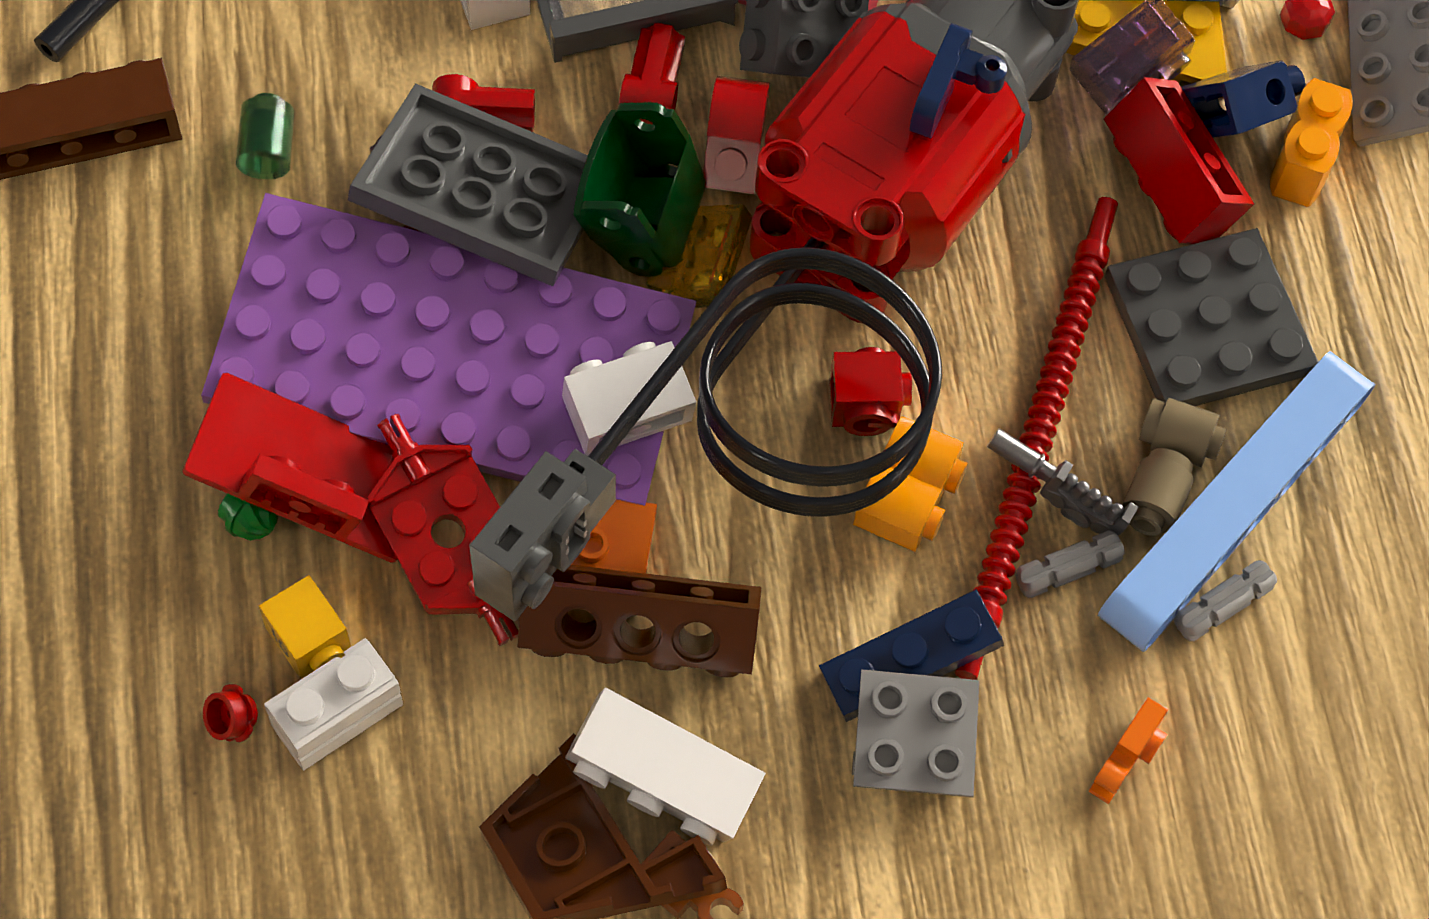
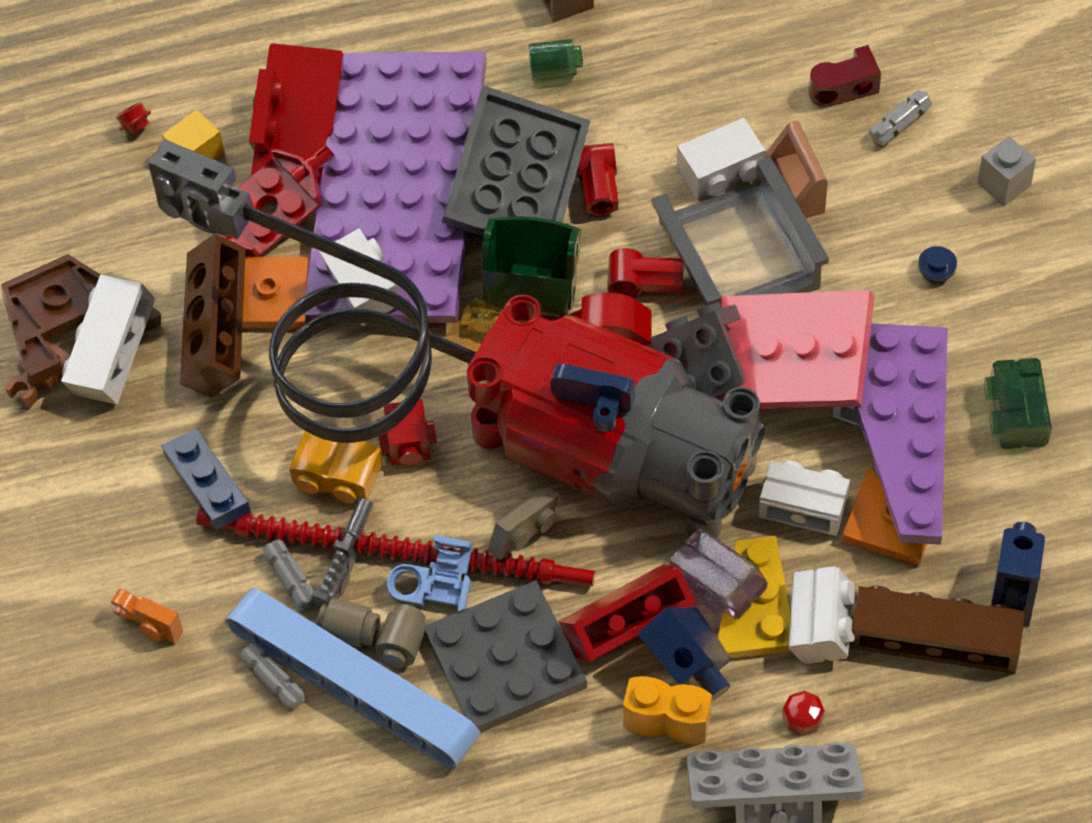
camera: 90 degrees right, 5 degrees down
(334, 704) = (128, 157): white brick -> none
(916, 733) = (143, 482): light grey hinge -> none
(1037, 258) = (522, 523): none -> dark tan plate
(1107, 375) = (445, 577): none -> light blue piece

